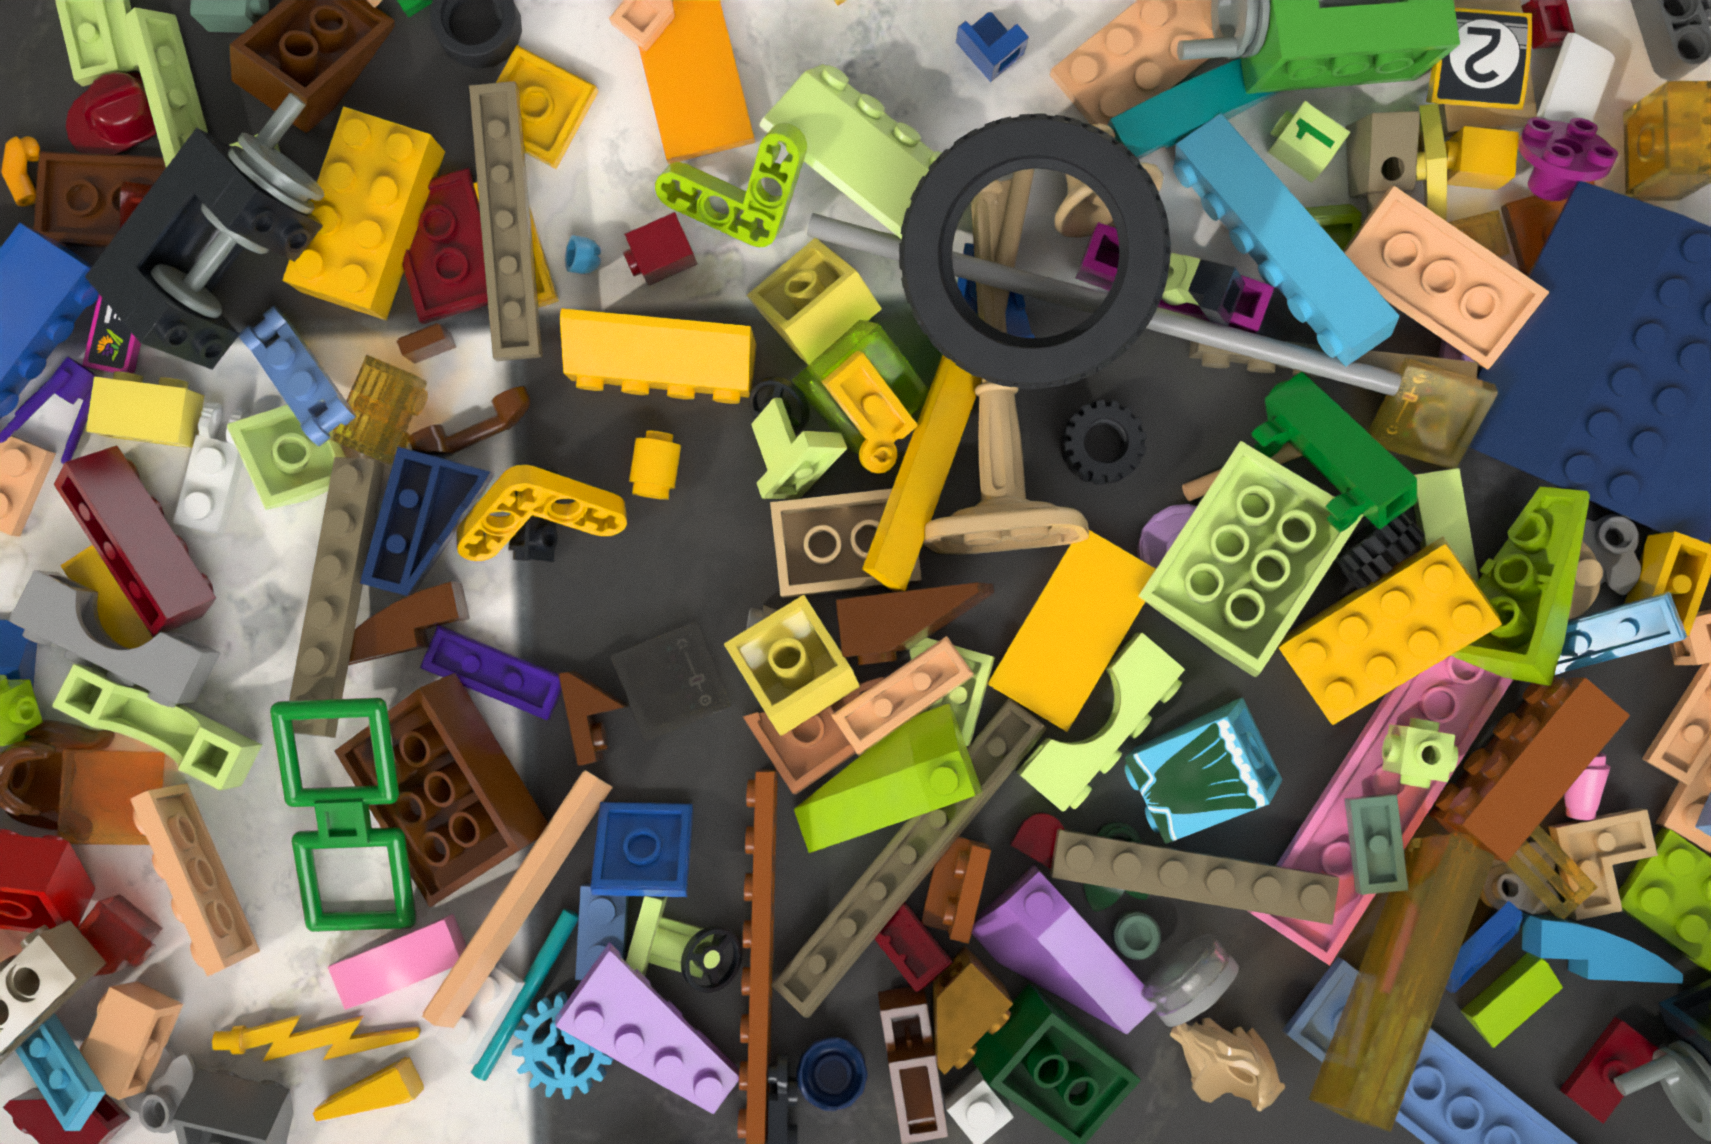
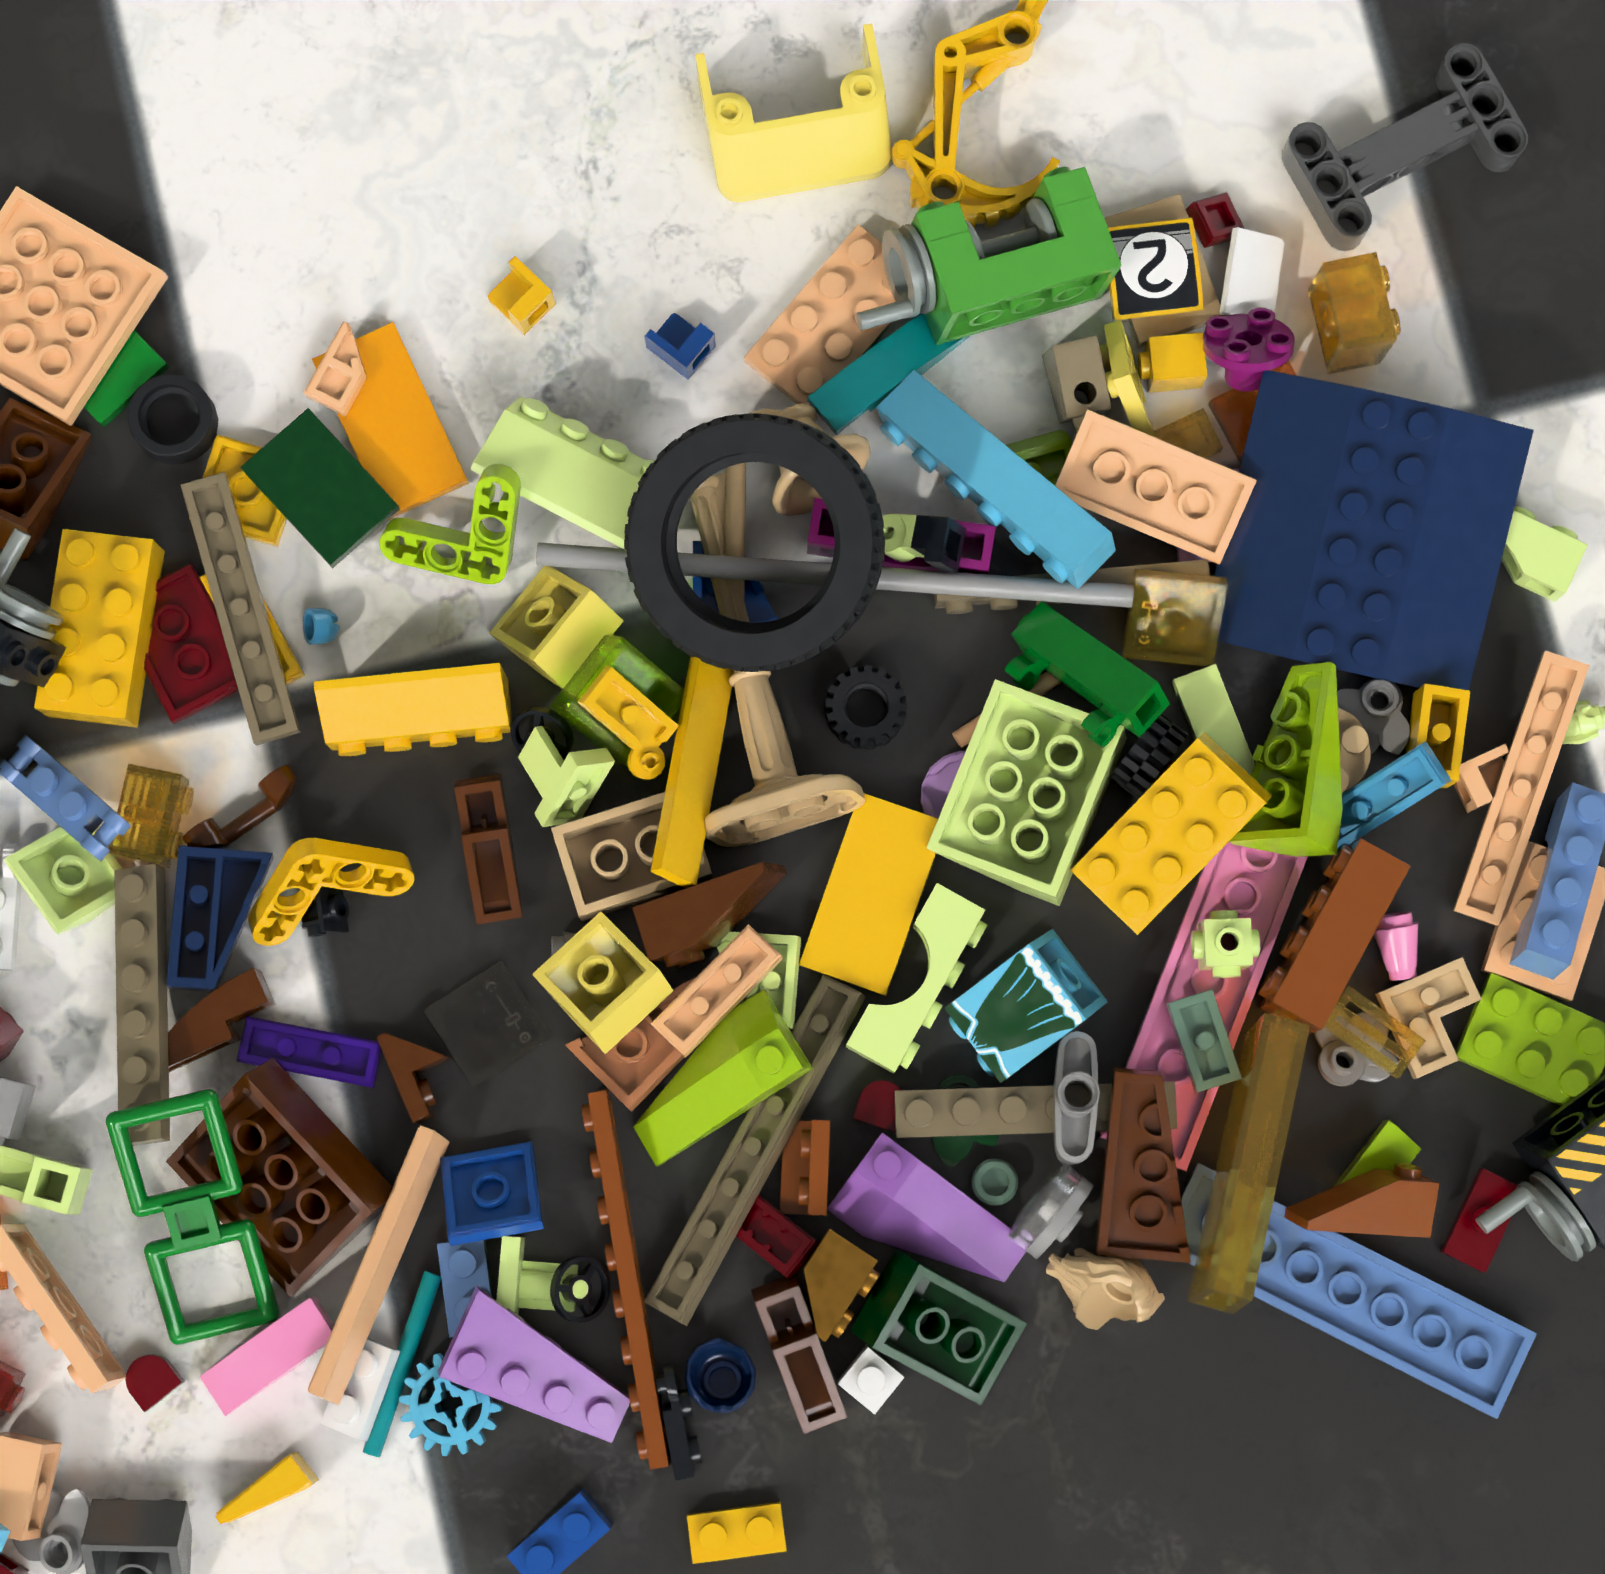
camera: 15 degrees left, 5 degrees down
(280, 960) = (151, 1380): none -> dark red tile
(285, 1043) = (172, 1462): yellow piece -> none
(426, 343) = (183, 741): reddish brown tile -> none
(607, 117) = (320, 488): none -> dark green tile
(654, 465) = (431, 816): yellow brick -> none
(659, 250) = (395, 606): dark red brick -> none
(705, 508) = (488, 848): none -> reddish brown slope
(1234, 909) = (1075, 1125): none -> light grey connector
(1287, 969) = (1140, 1186): none -> reddish brown wing
(1307, 140) = (1004, 378): yellowish green brick -> none
(1484, 945) = (1324, 1122): blue tile -> none
(1511, 1039) = (1373, 1203): none -> dark orange slope
(1593, 951) = (1440, 1104): dark azure slope -> none

